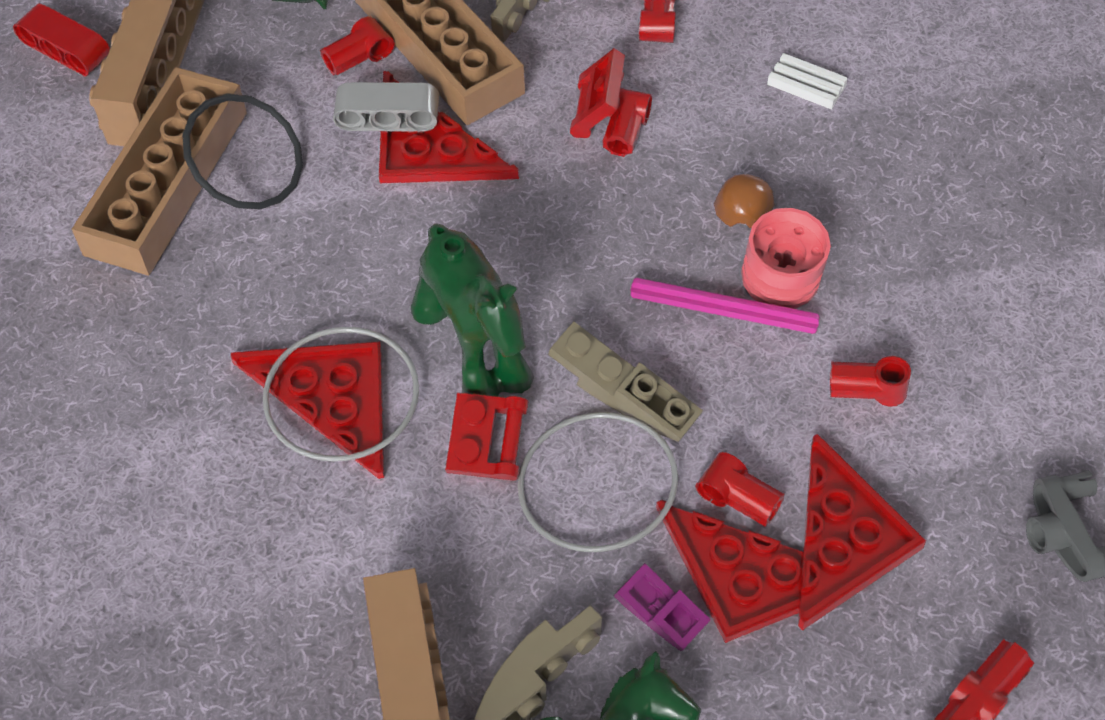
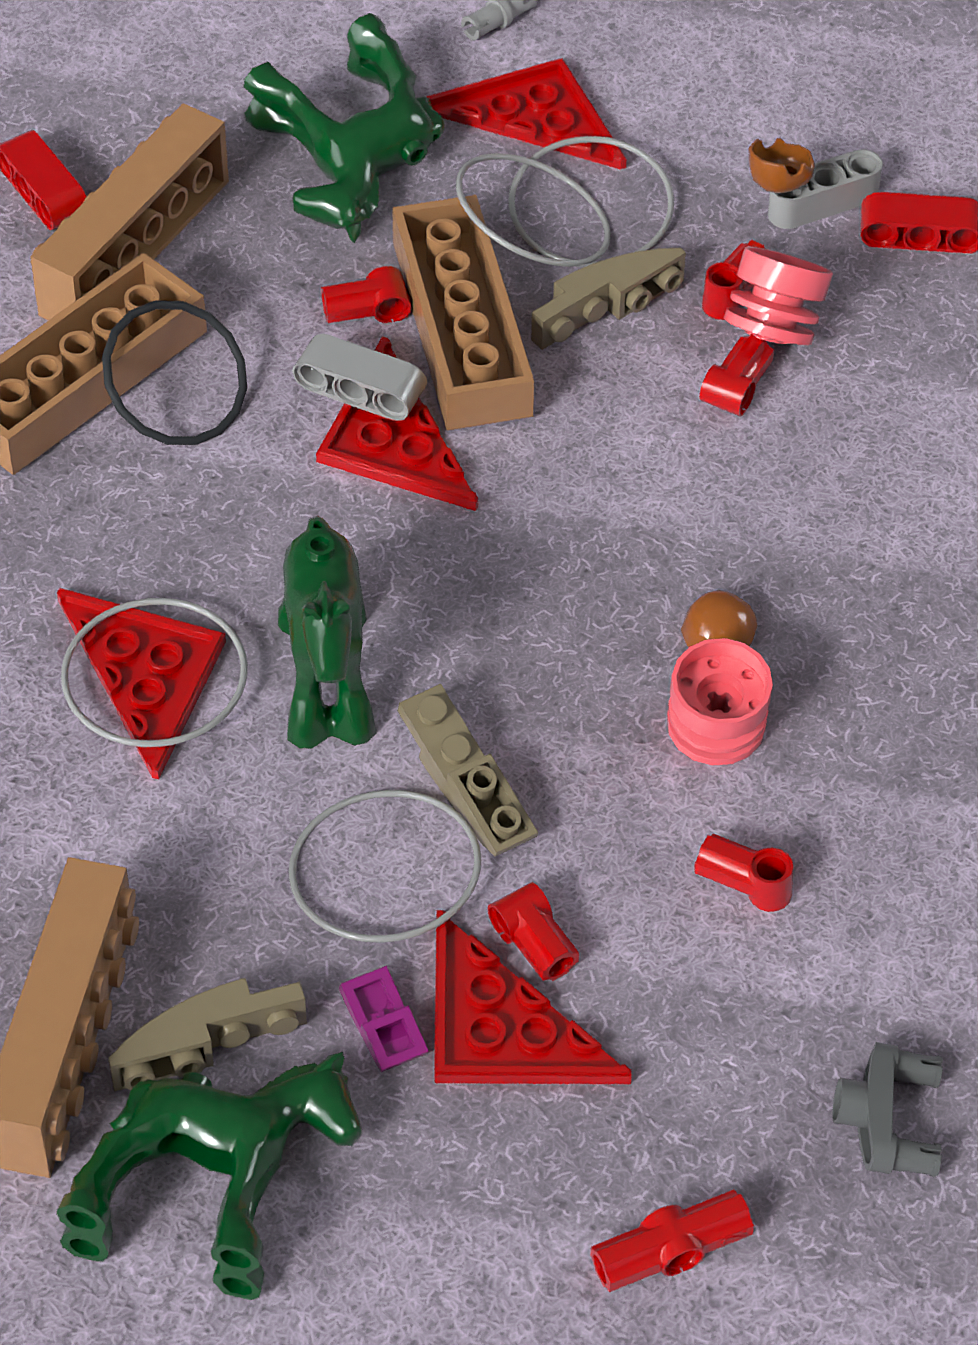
camera: 20 degrees right, 5 degrees down
(473, 436) = (275, 766): red plate -> none
(598, 93) = (609, 446): red plate -> none
(627, 121) = (636, 479): red piece -> none
(725, 305) = (631, 732): dark pink axle -> none
(808, 77) = (879, 509): white tile -> none
(848, 535) = (625, 1023): red tile -> none

